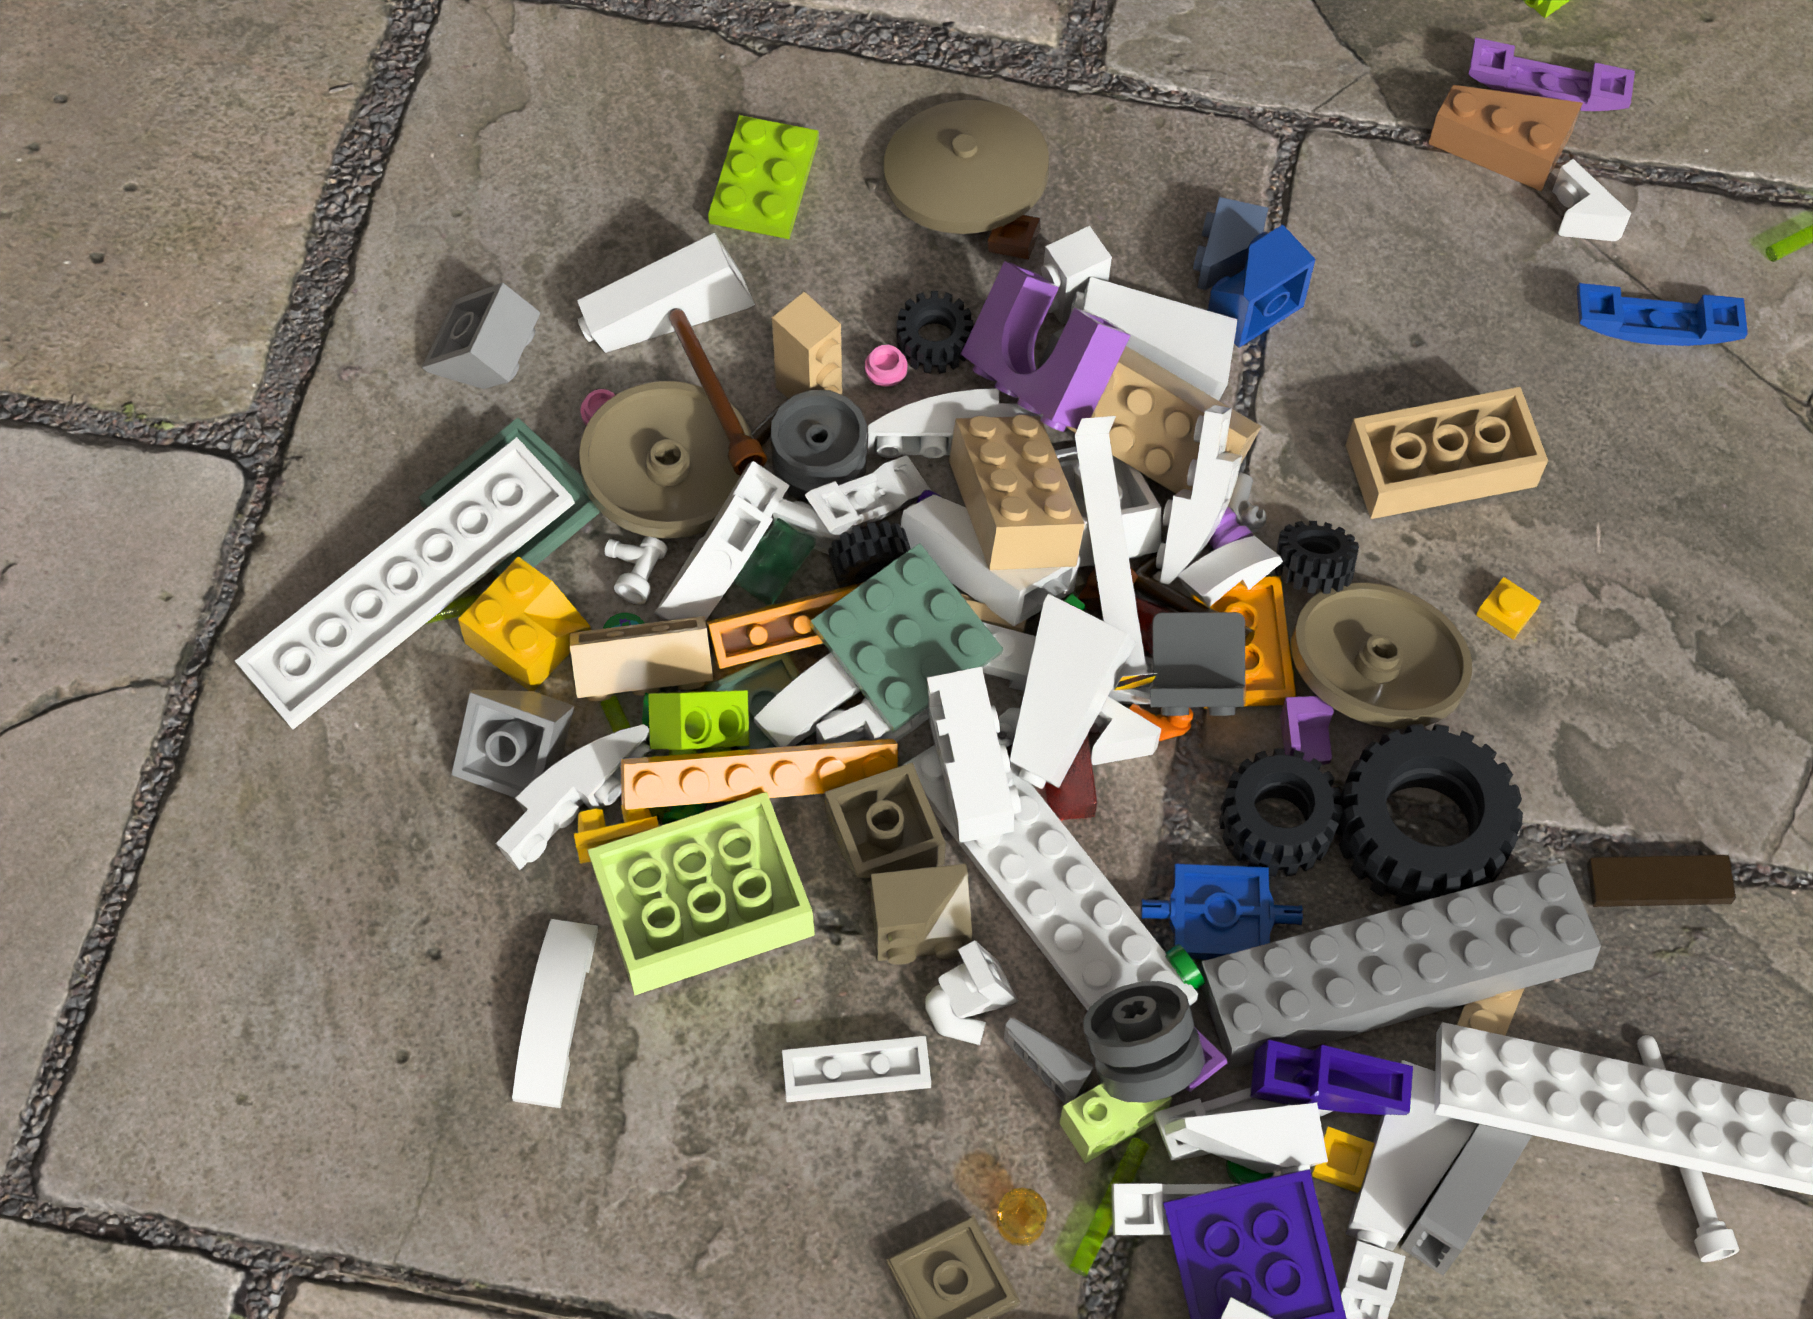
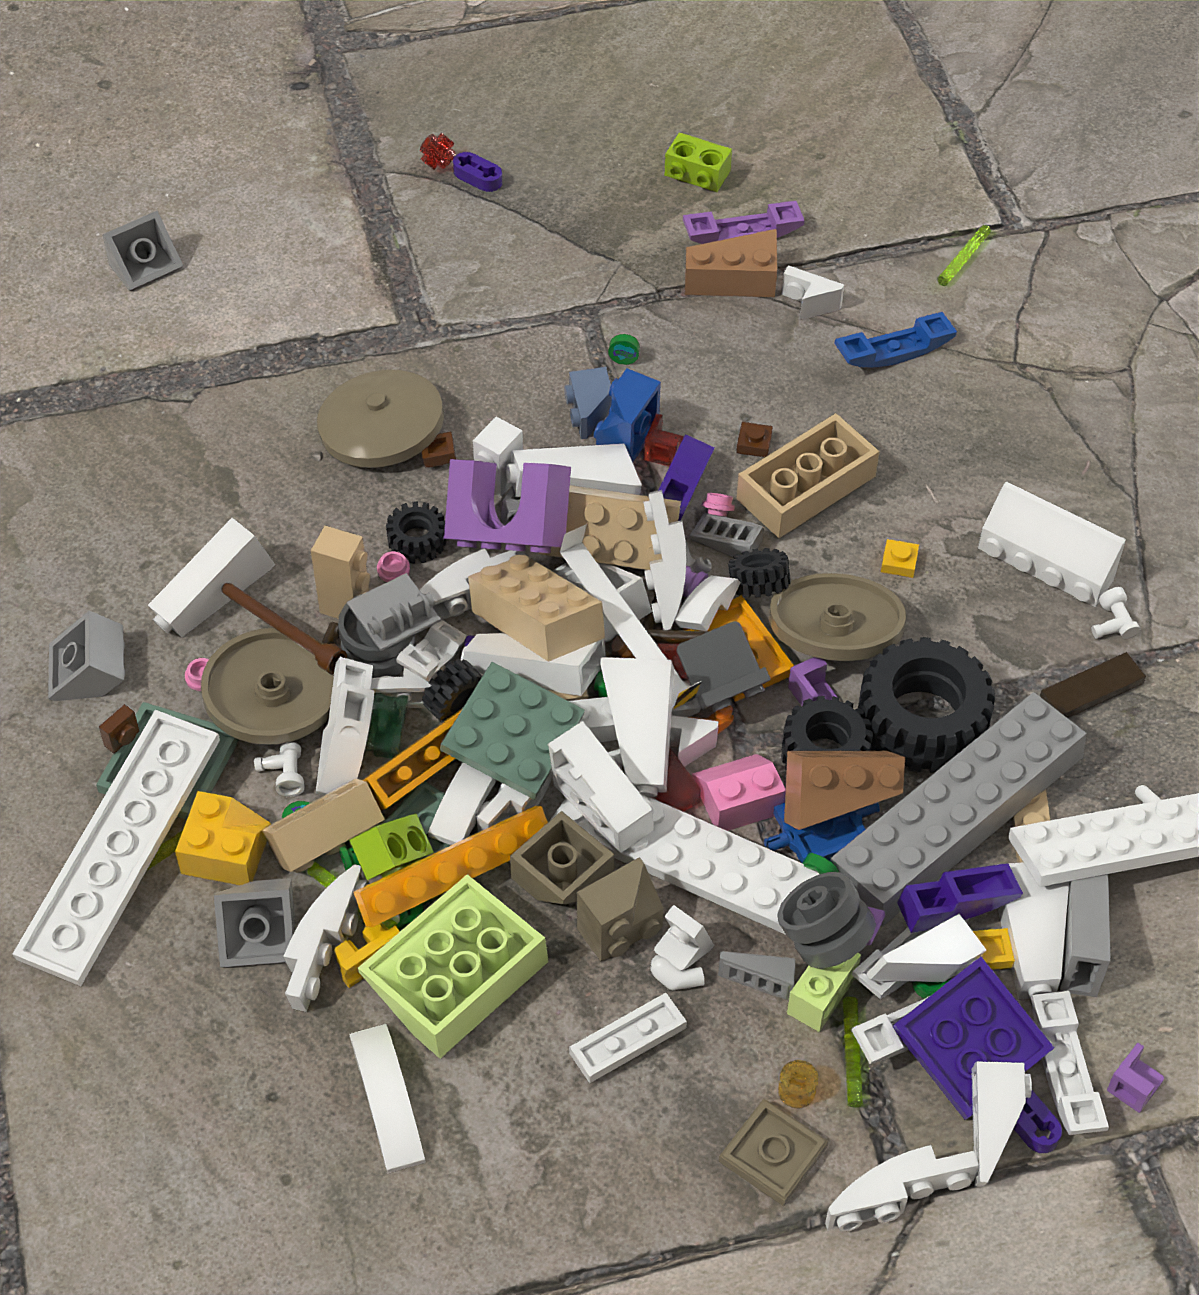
camera: 25 degrees left, 10 degrees down
(470, 442) = (119, 729): none -> reddish brown plate
(763, 177) = (237, 478): lime plate -> none
(843, 429) = (394, 611): none -> light grey hinge
(1145, 825) = (740, 791): none -> bright pink slope
(1259, 873) = (838, 782): none -> medium nougat wedge
(1291, 337) = (659, 444): none -> clear red panel
(1291, 390) = (686, 471): none -> dark purple slope
(1308, 190) = (624, 349): none -> green tile
(1317, 444) = (718, 504): none -> bright pink plate
(1338, 498) = (748, 531): none -> light grey slope
(1410, 375) = (754, 439): none -> reddish brown plate
(1706, 675) = (1051, 544): none -> white slope
(1751, 780) = (1114, 601): none -> white piece

